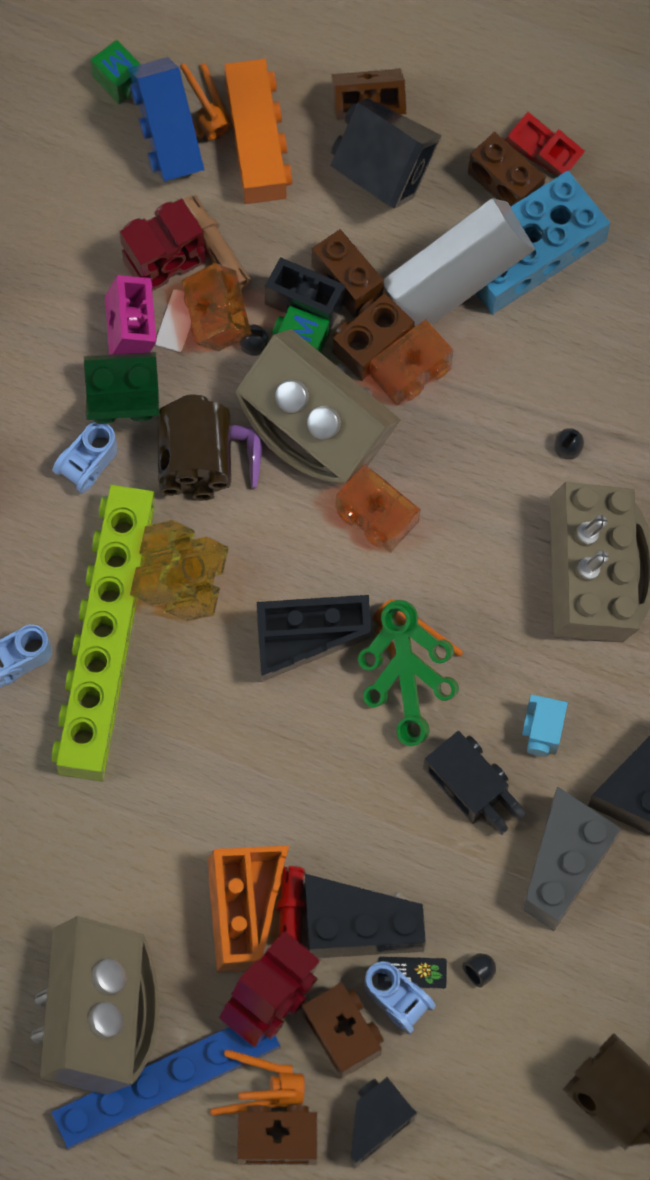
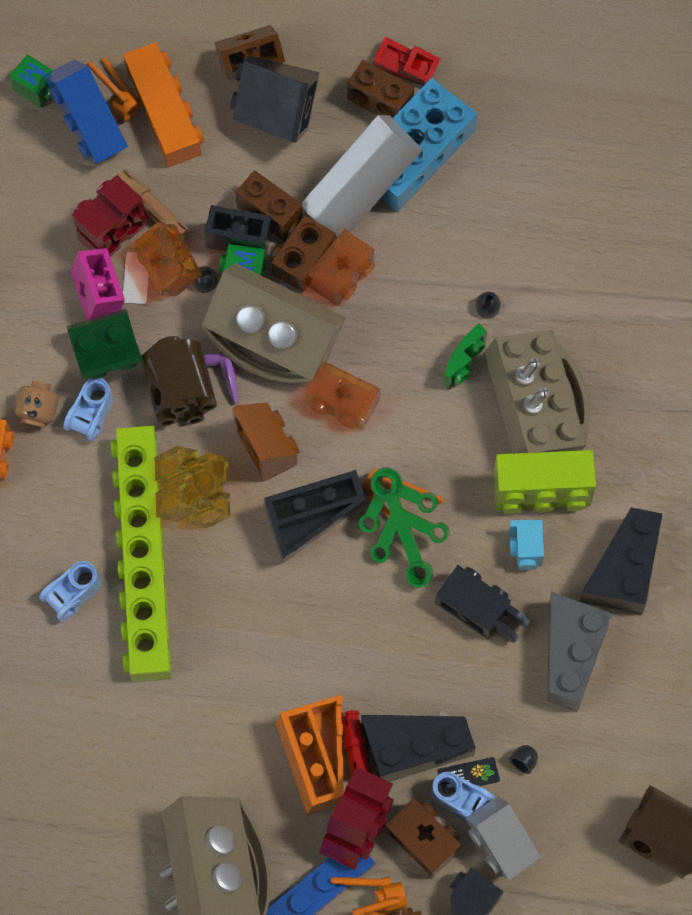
camera: 10 degrees left, 0 degrees up
(28, 436) = (36, 404): none -> medium nougat head
(276, 536) = (264, 439): none -> dark orange slope
(431, 1053) = (503, 838): none -> light grey brick
(519, 502) = (460, 362): none -> green slope
(581, 659) = (544, 481): none -> lime brick

